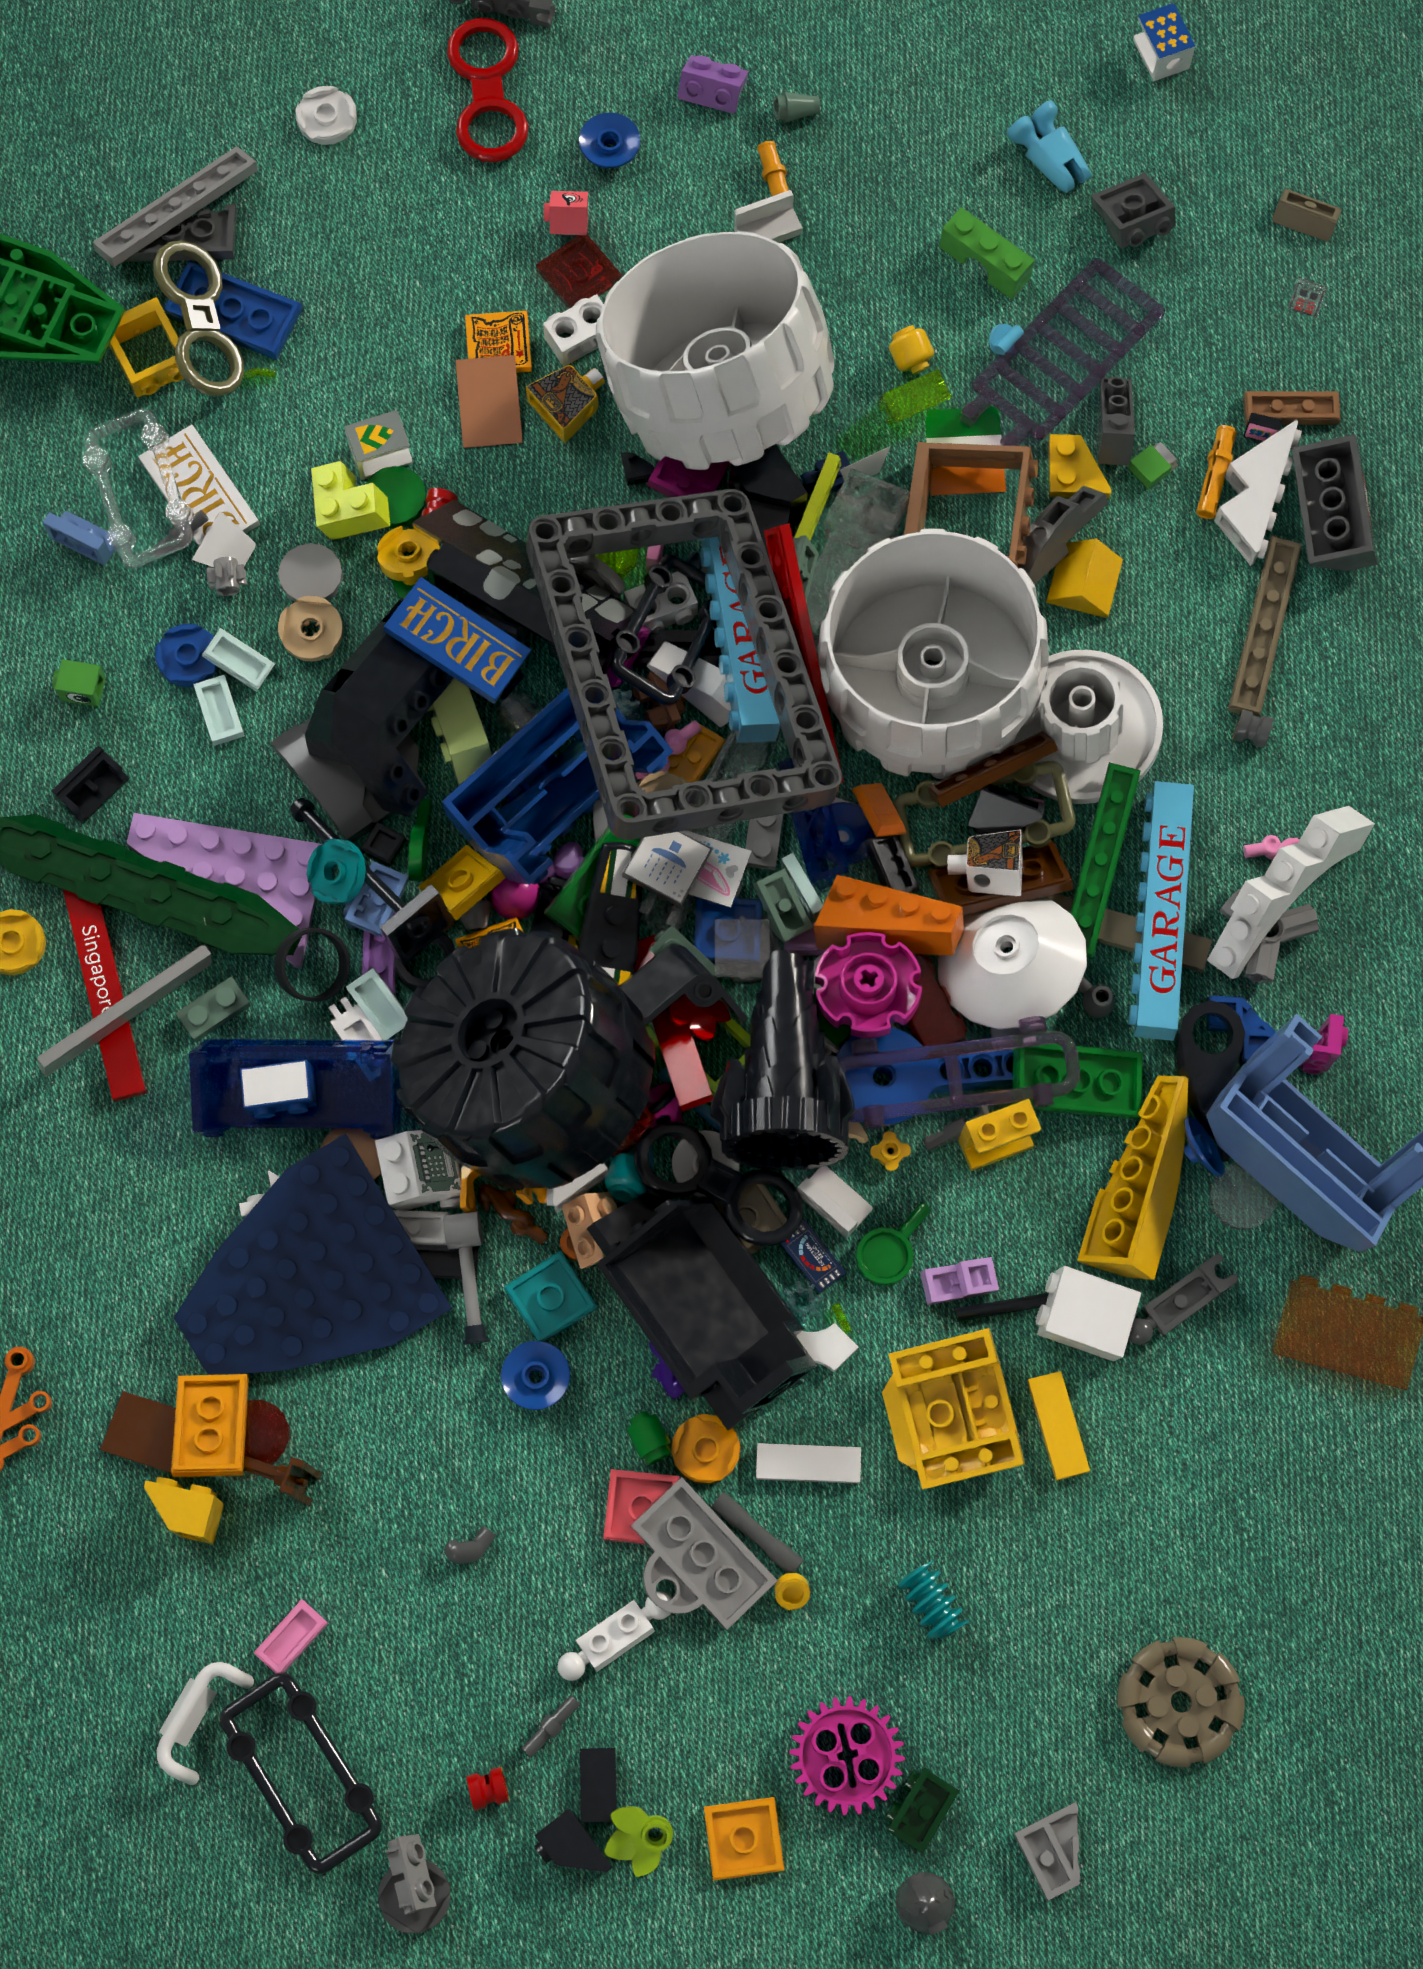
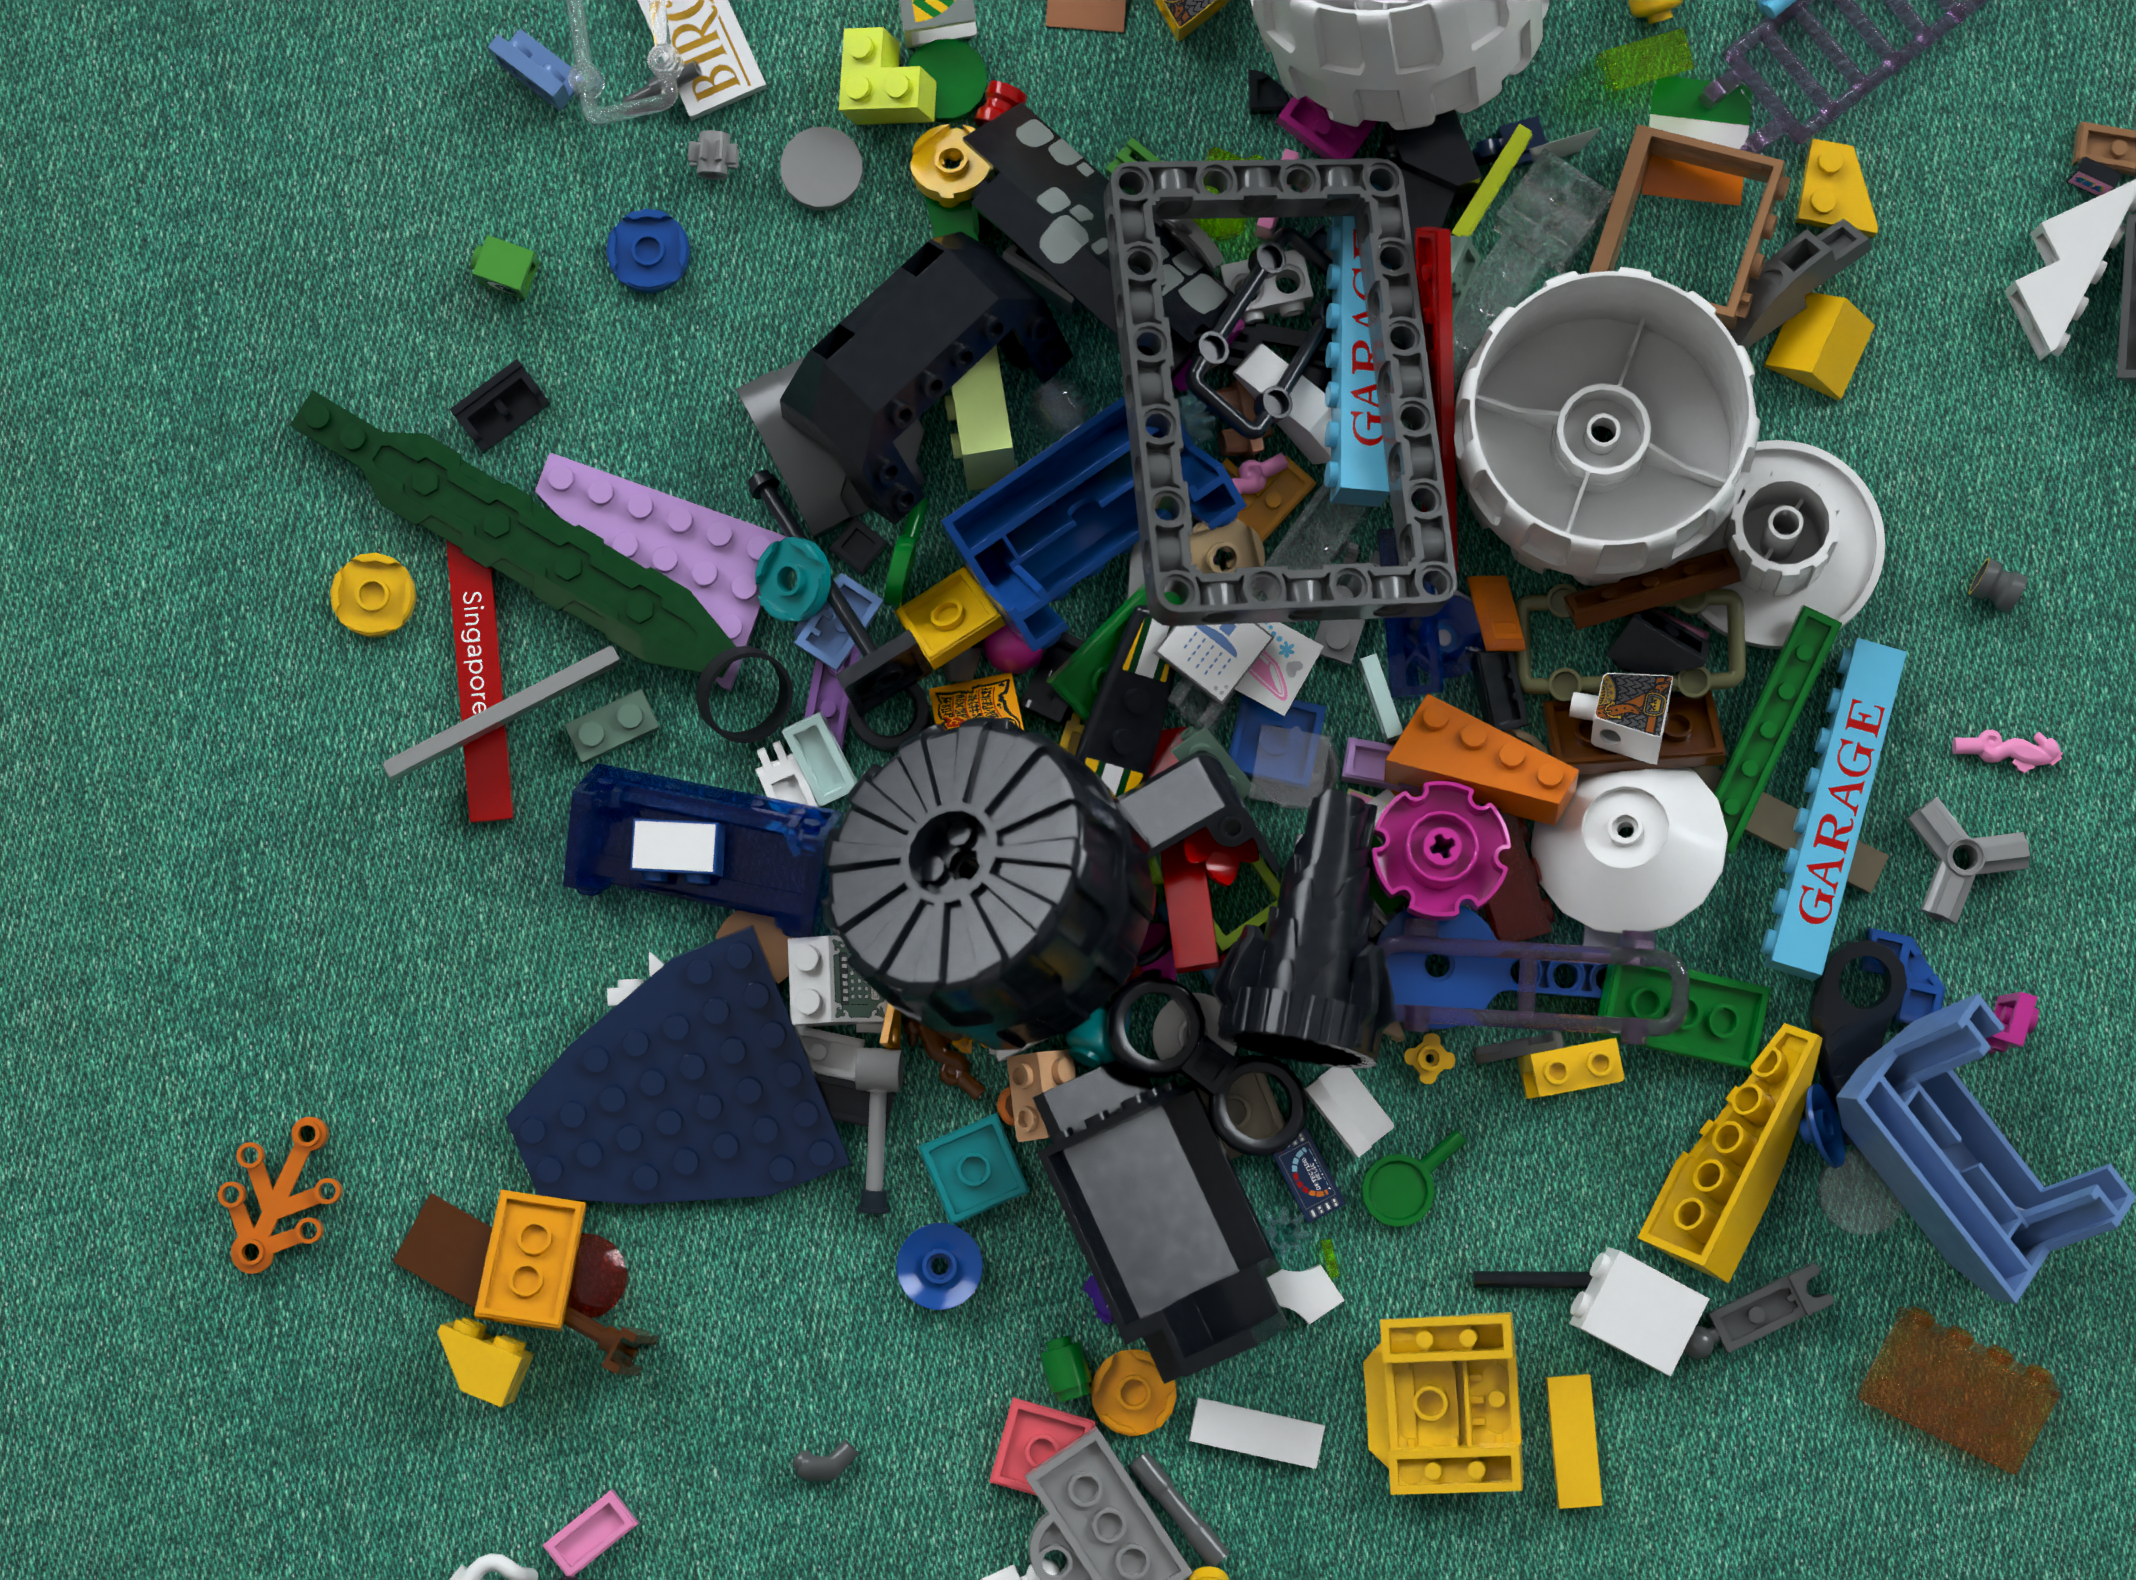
camera: 10 degrees right, 10 degrees up
(219, 710) = (677, 332): light aqua tile -> none
(224, 540) = (717, 108): white sticker -> none
(238, 659) = (712, 270): light aqua tile -> none
(299, 614) = (799, 223): tan plate -> none
(457, 640) = (993, 313): blue tile -> none
(565, 861) = (1088, 610): medium lavender rock -> none
(782, 906) = (1350, 721): sand green slope -> none
(959, 1281) = (1485, 1238): lavender slope -> none
(1091, 1004) = (1717, 909): dark grey bar -> none
(1115, 421) = (1902, 135): dark grey slope -> none
(1153, 464) = (1939, 202): bright green piece -> none
(1219, 460) = (2027, 212): light orange pin -> none
(1264, 626) = (2041, 448): dark tan tile -> none
(1265, 898) = (2006, 797): white arch -> none

